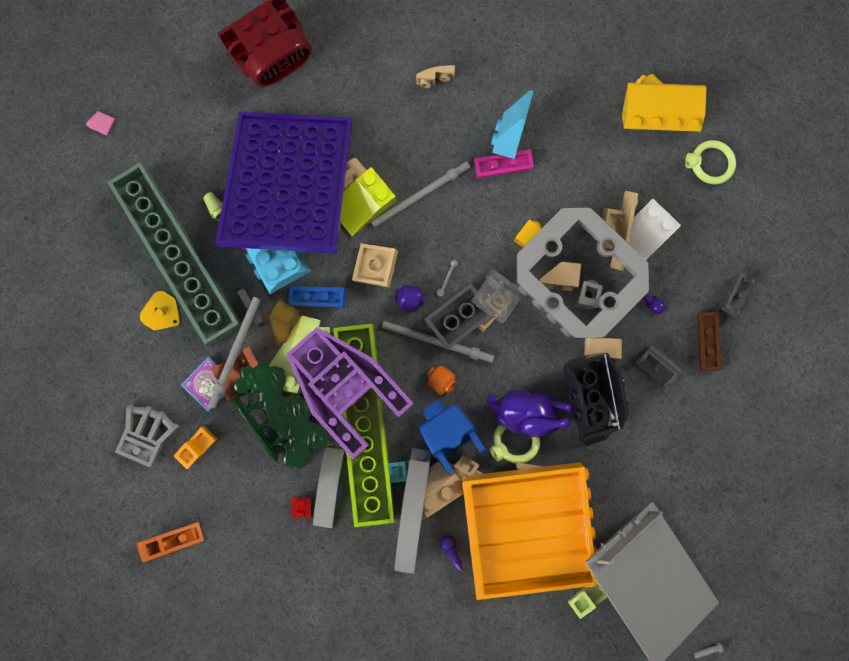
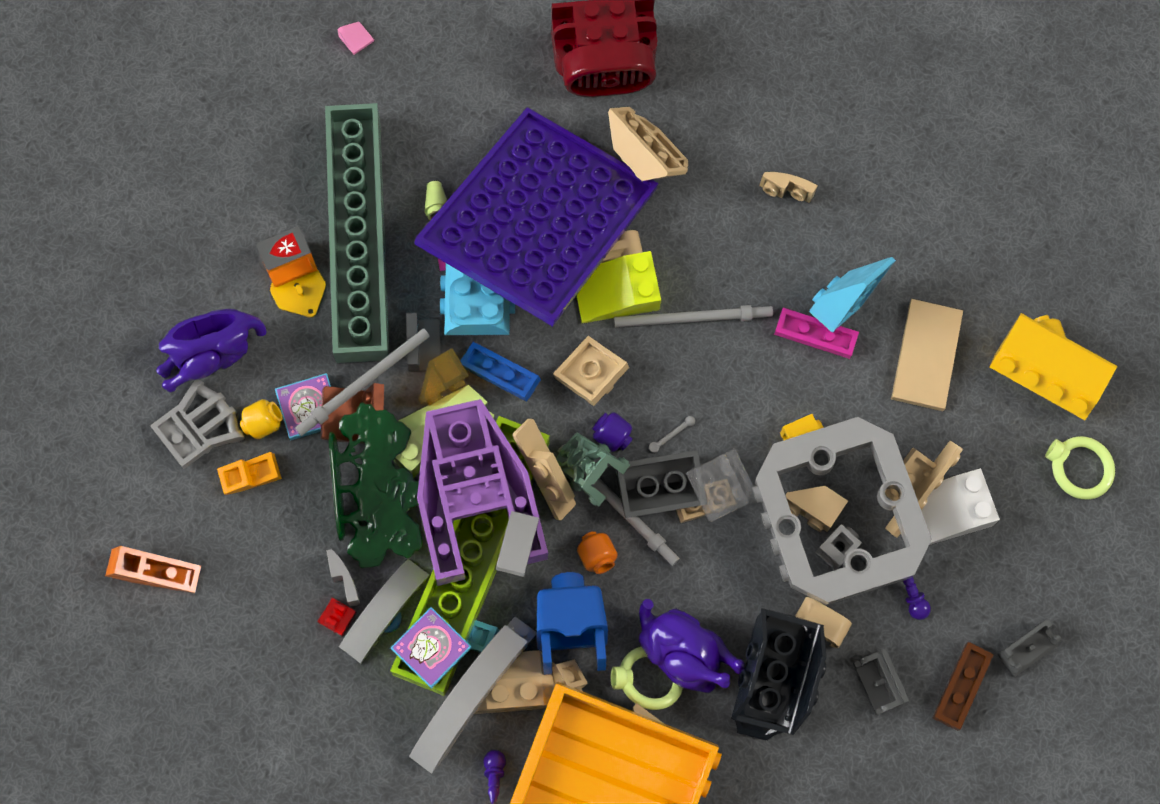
camera: 15 degrees right, 10 degrees down
(120, 381) = (206, 345): none -> dark purple piece
(139, 295) = (286, 256): none -> piece
(183, 409) = (261, 419): none -> yellow head
(286, 479) = (338, 573): none -> light grey slope
(330, 98) = (644, 146): none -> tan wedge
(371, 500) = (431, 647): none -> tile
(380, 347) = (545, 469): none -> tan bracket
(391, 409) = (517, 543): none -> light grey slope
(402, 332) = (582, 460): none -> sand green piece
(580, 140) = (927, 355): none -> tan tile

